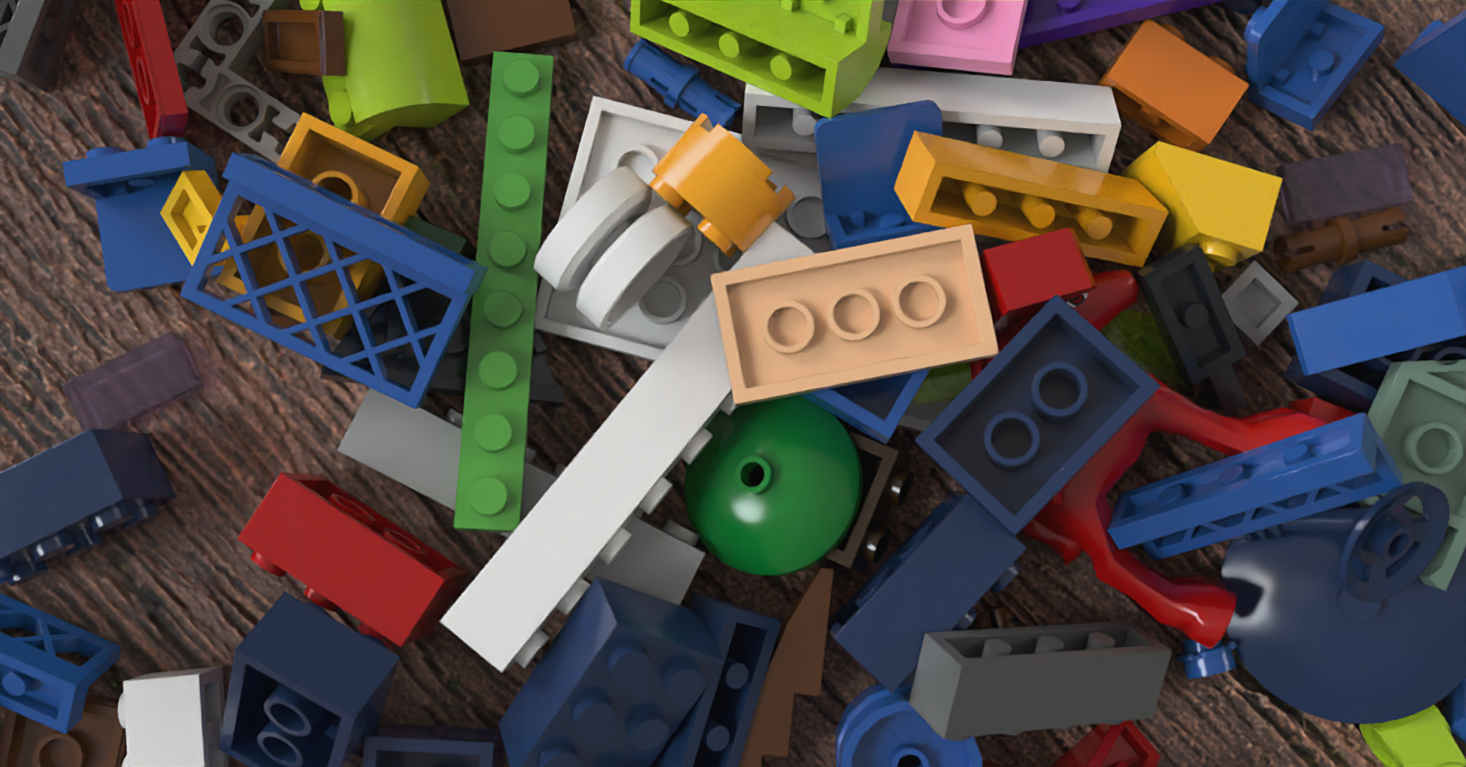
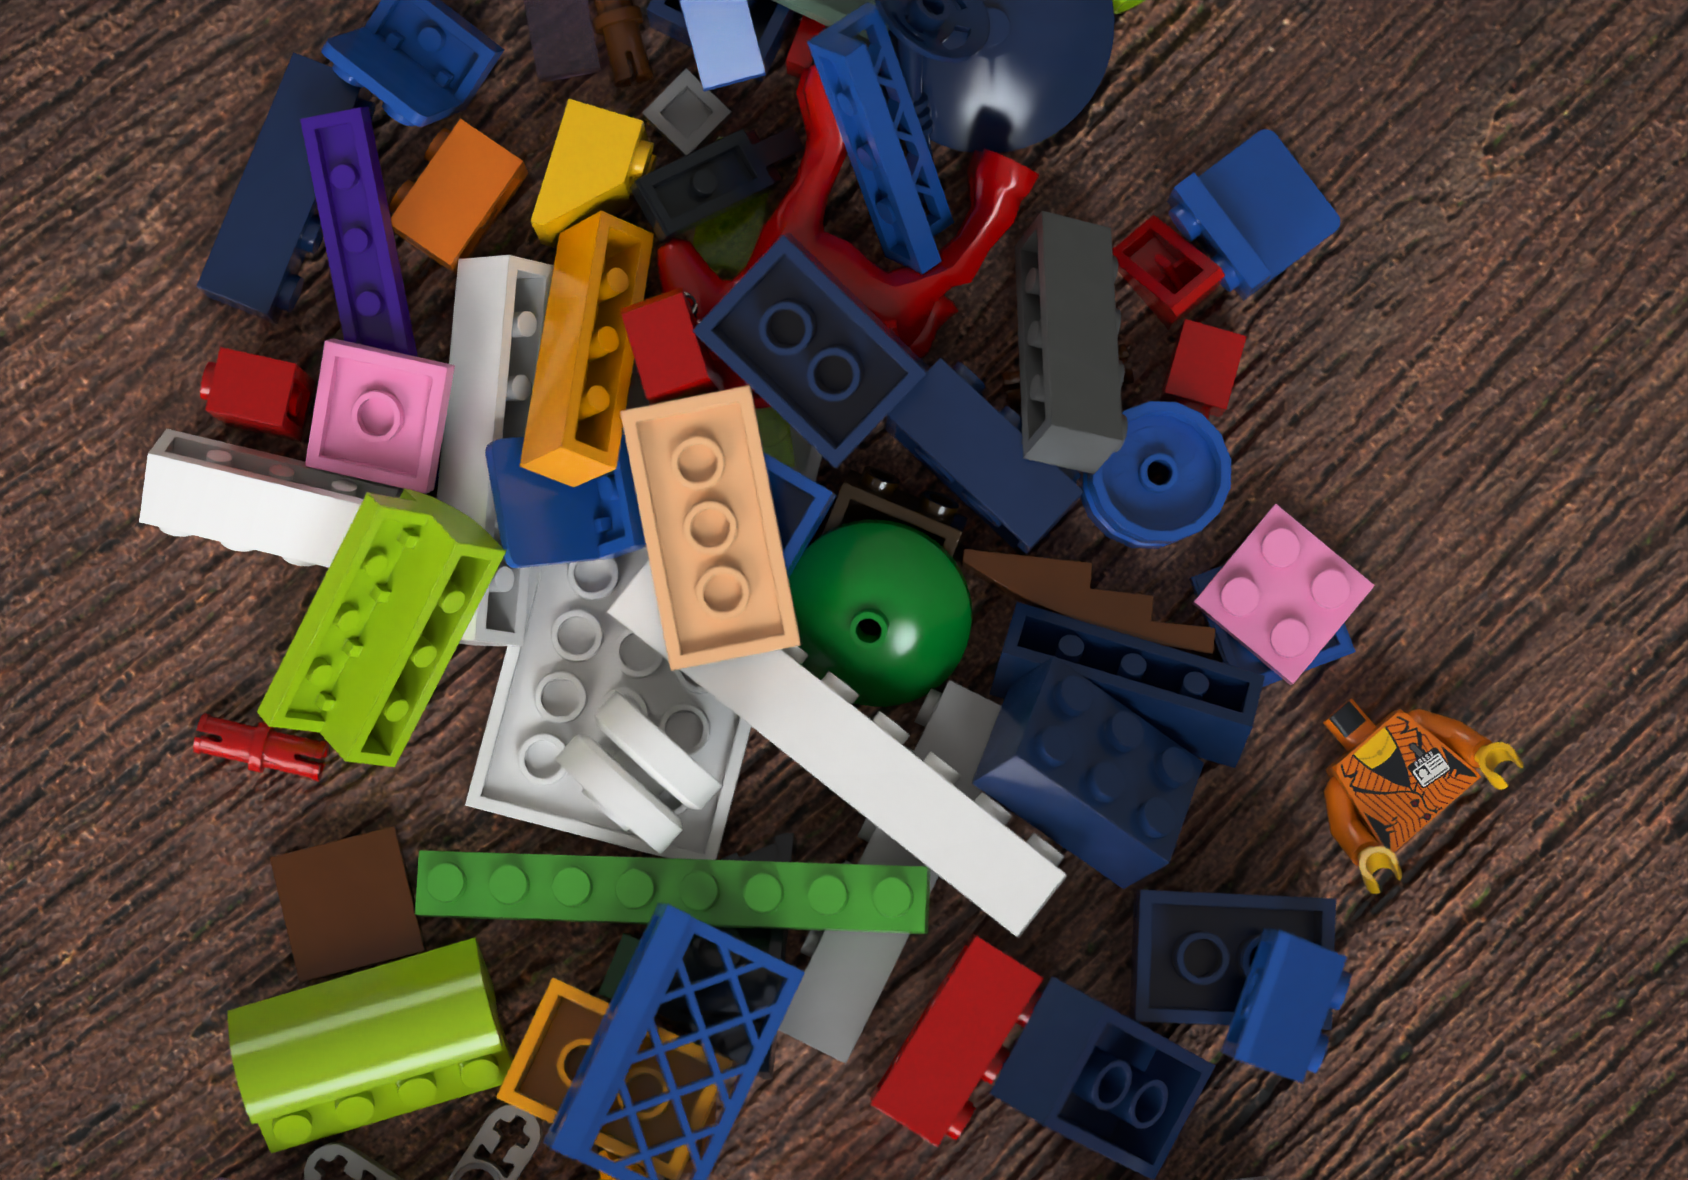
camera: 90 degrees left, 0 degrees up
(304, 42) = (410, 1112): reddish brown tile -> none
(680, 84) = (452, 712): blue pin -> none
(722, 184) = (573, 664): light orange brick -> none
(1204, 662) = (1051, 167): blue plate -> none

